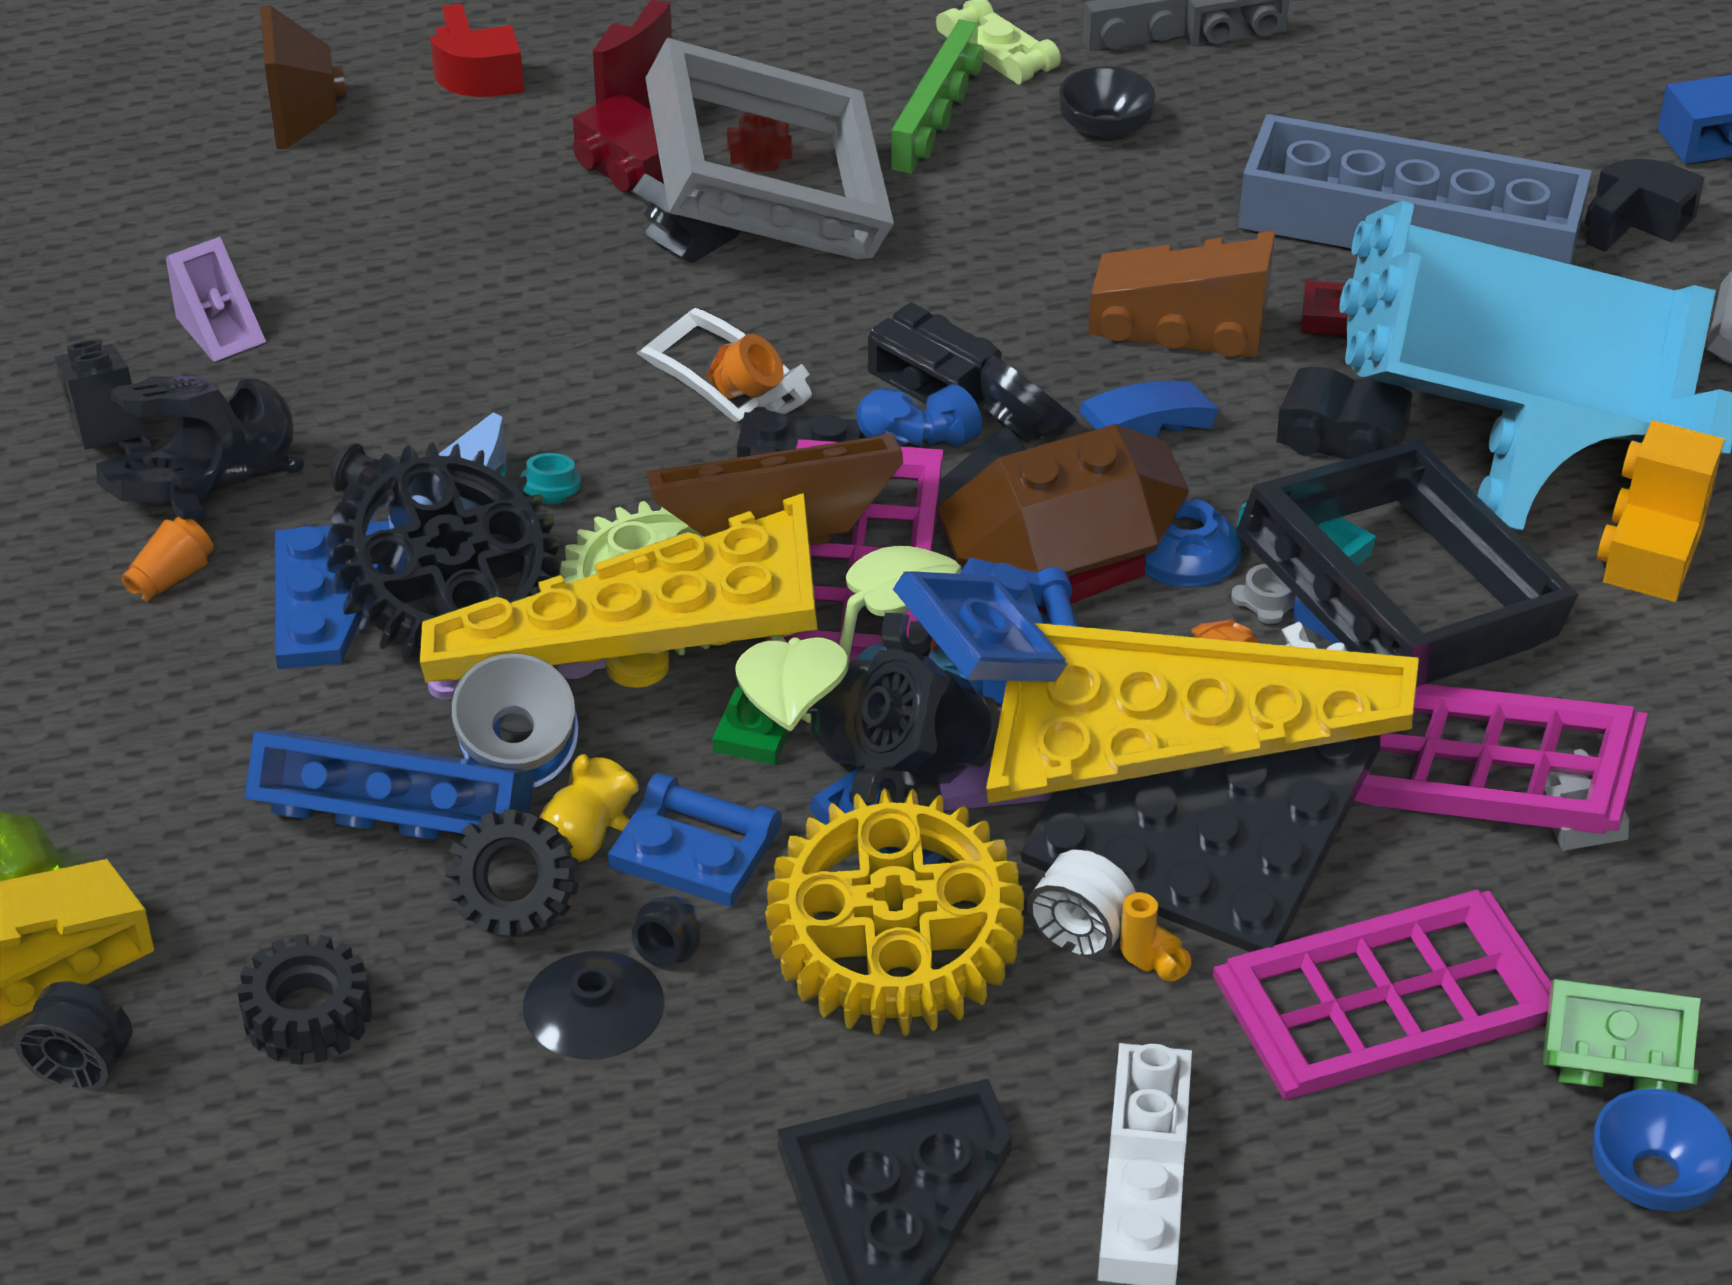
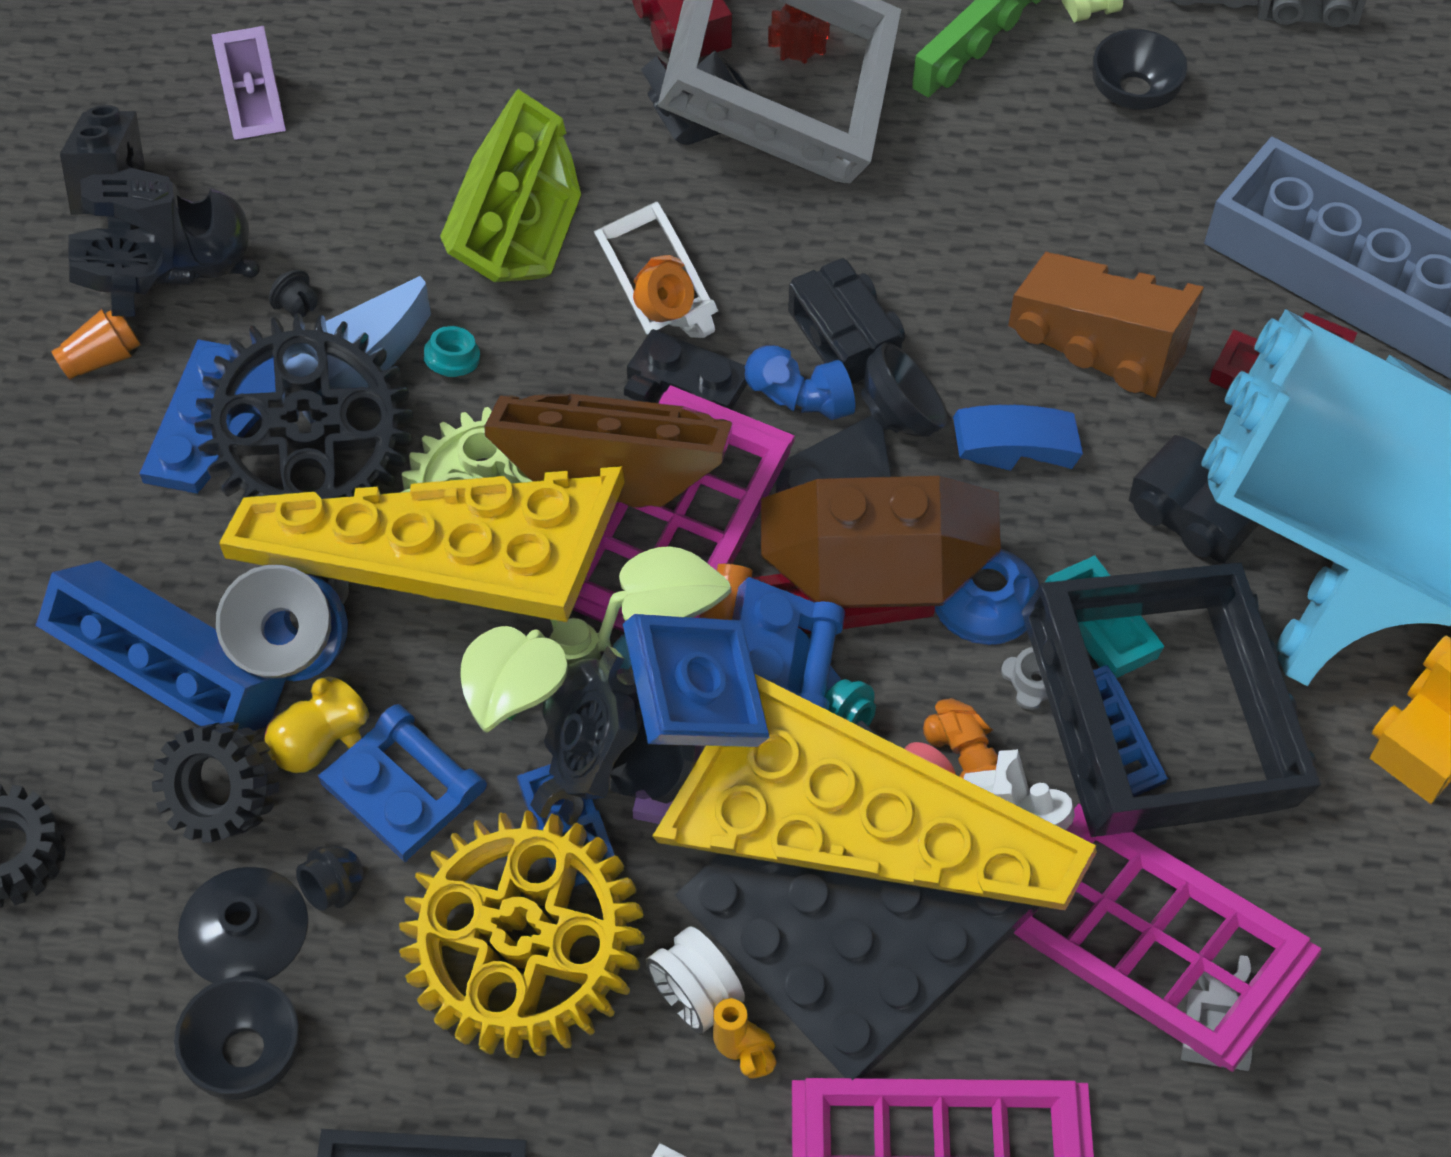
camera: 20 degrees right, 15 degrees up
(546, 330) = (515, 196): none -> lime wedge
(648, 1057) = (222, 1012): none -> black piece

